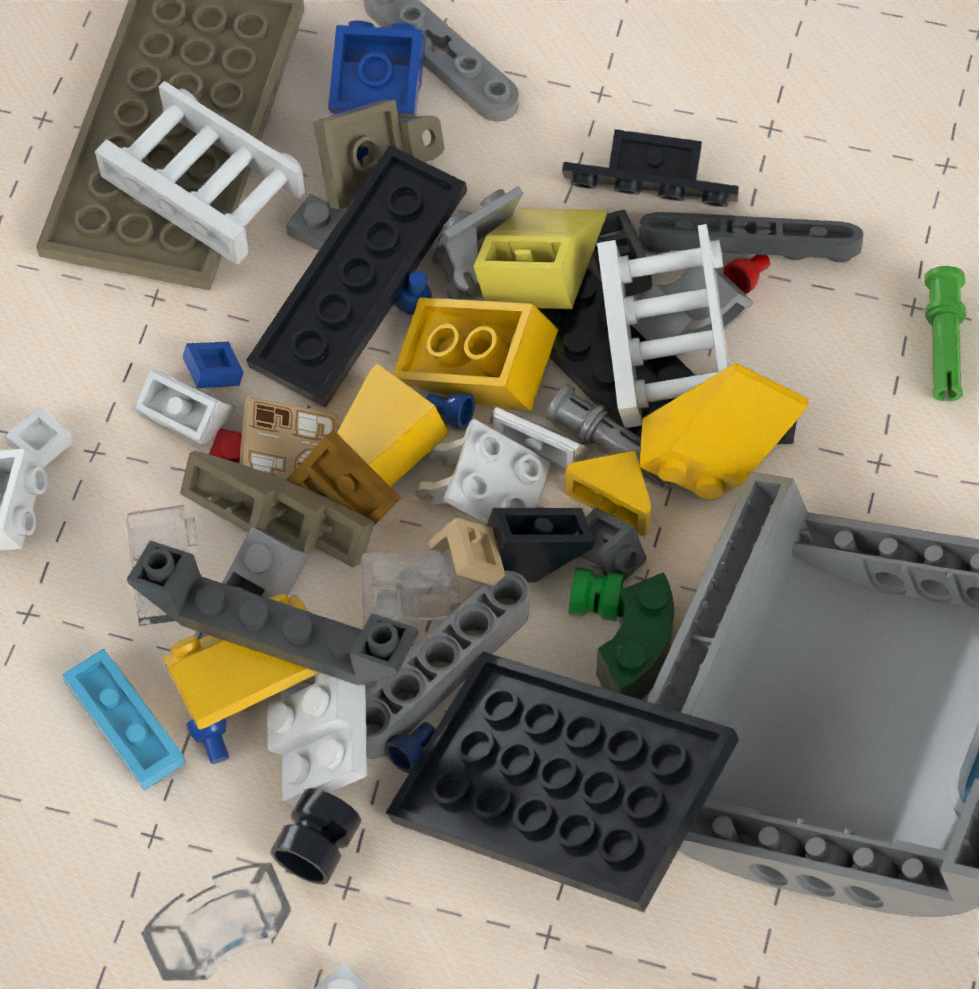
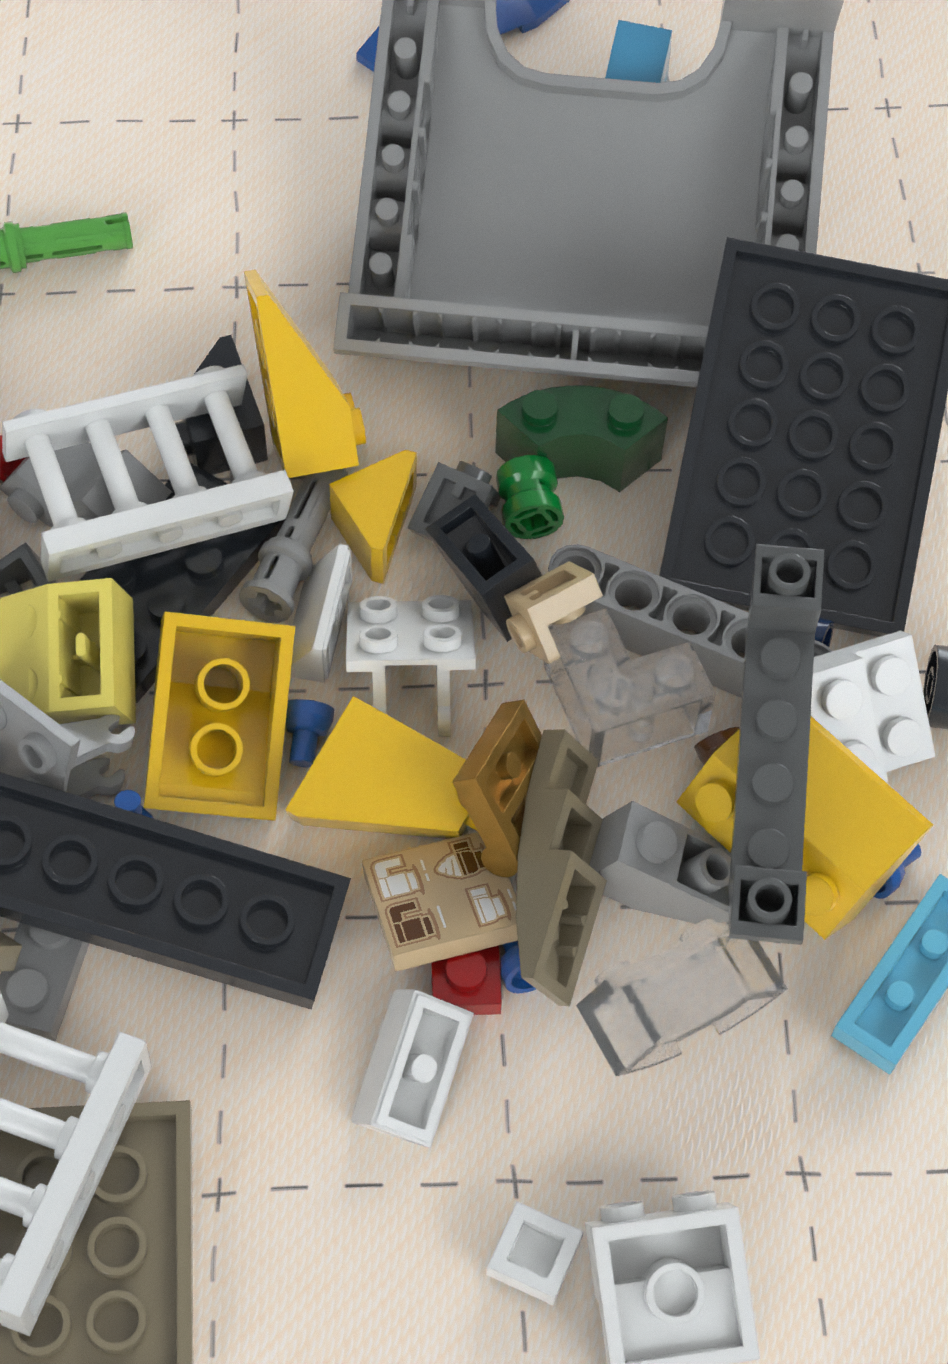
camera: 110 degrees left, 0 degrees up
(212, 364) = (333, 1047): blue plate -> none

